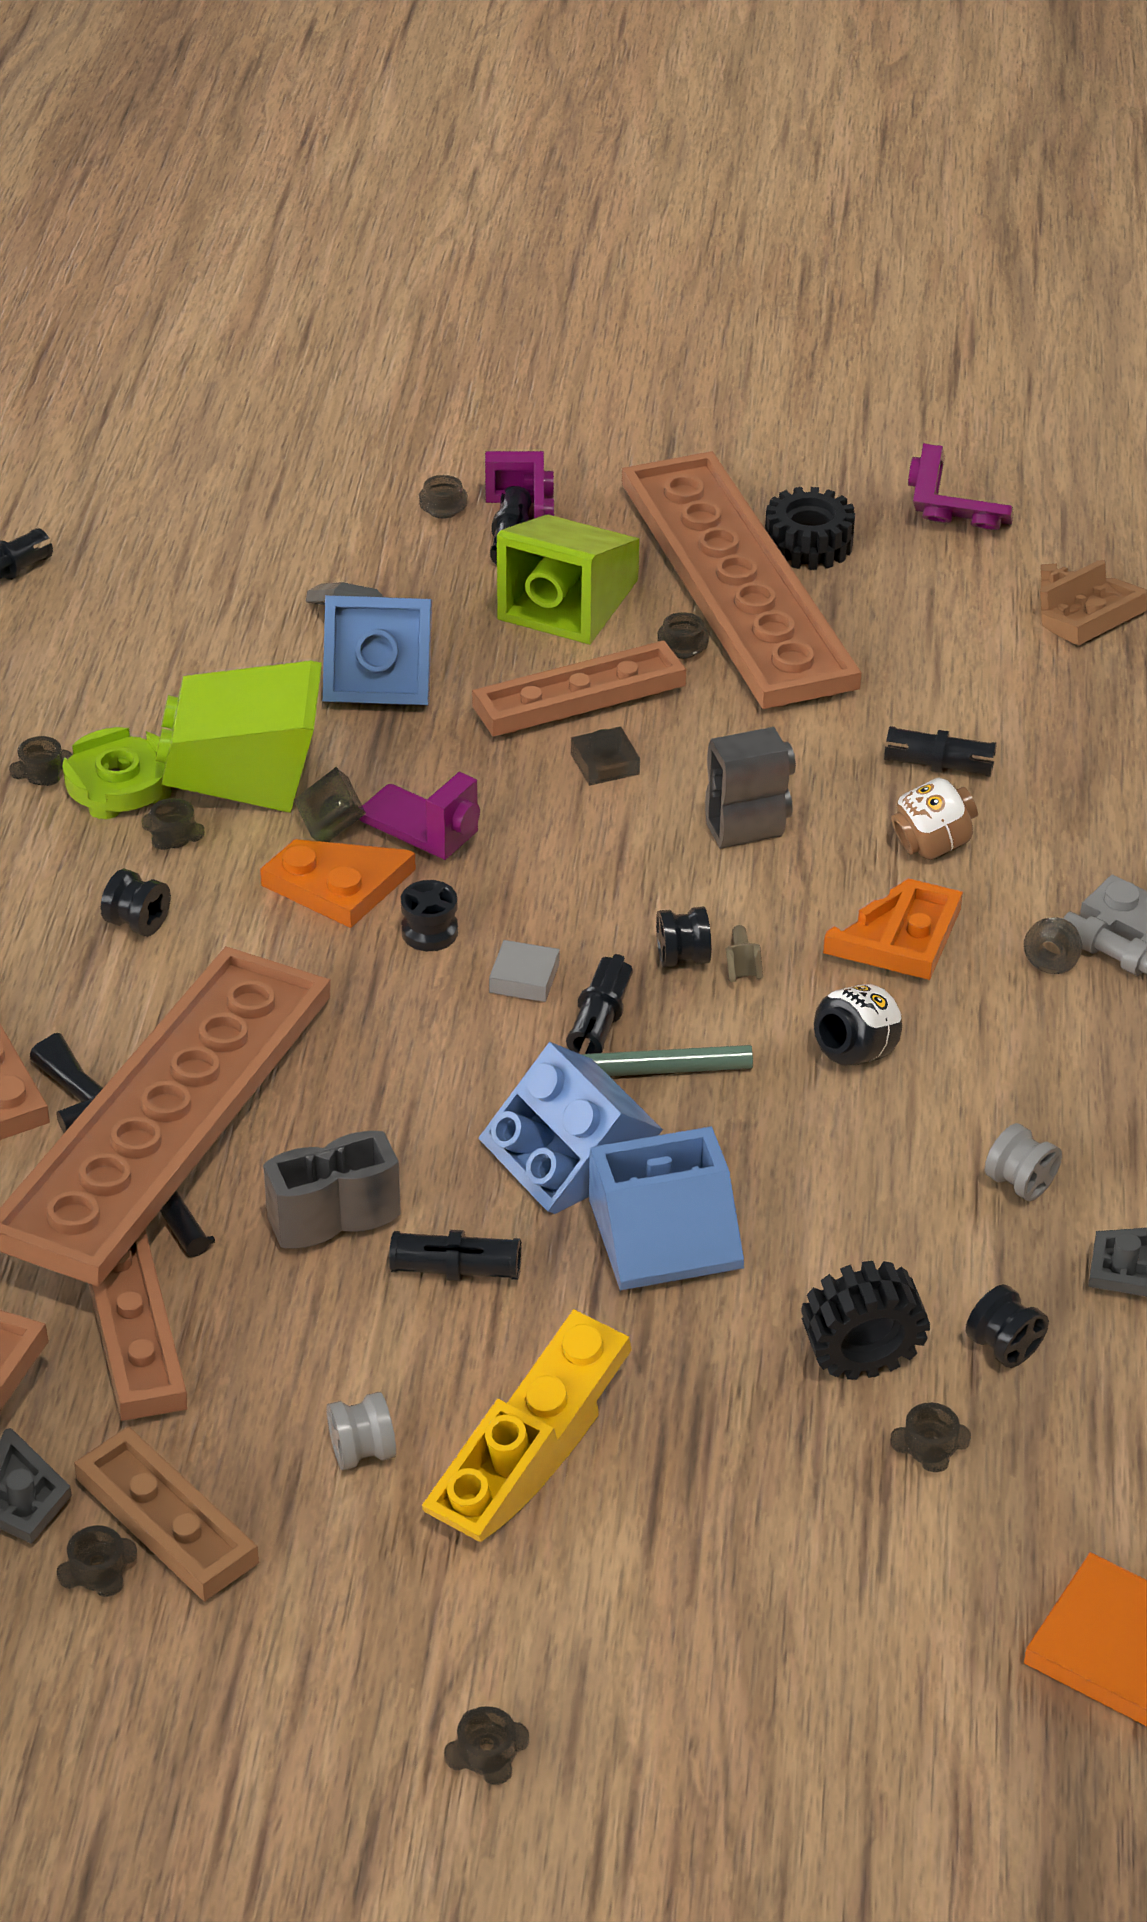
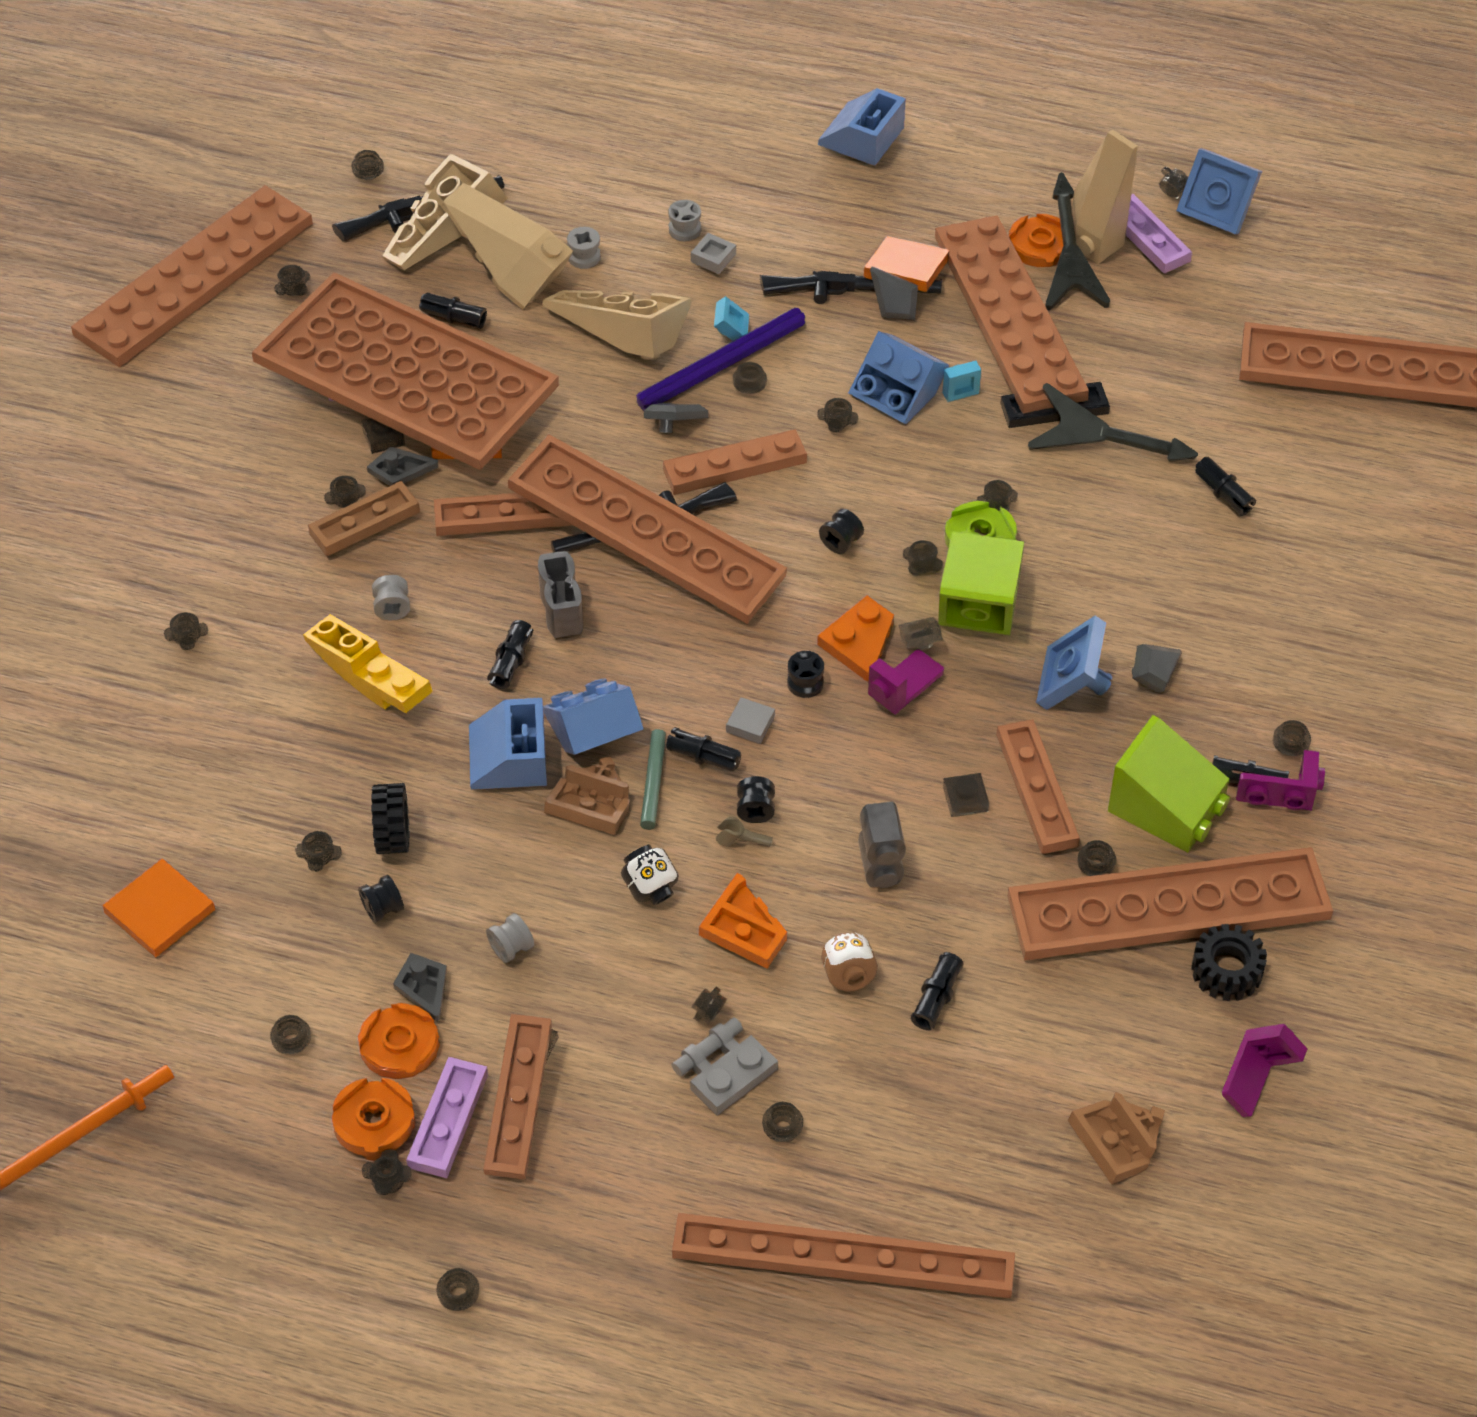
camera: 100 degrees right, 10 degrees up
(734, 1107) = (591, 797): none -> medium nougat slope

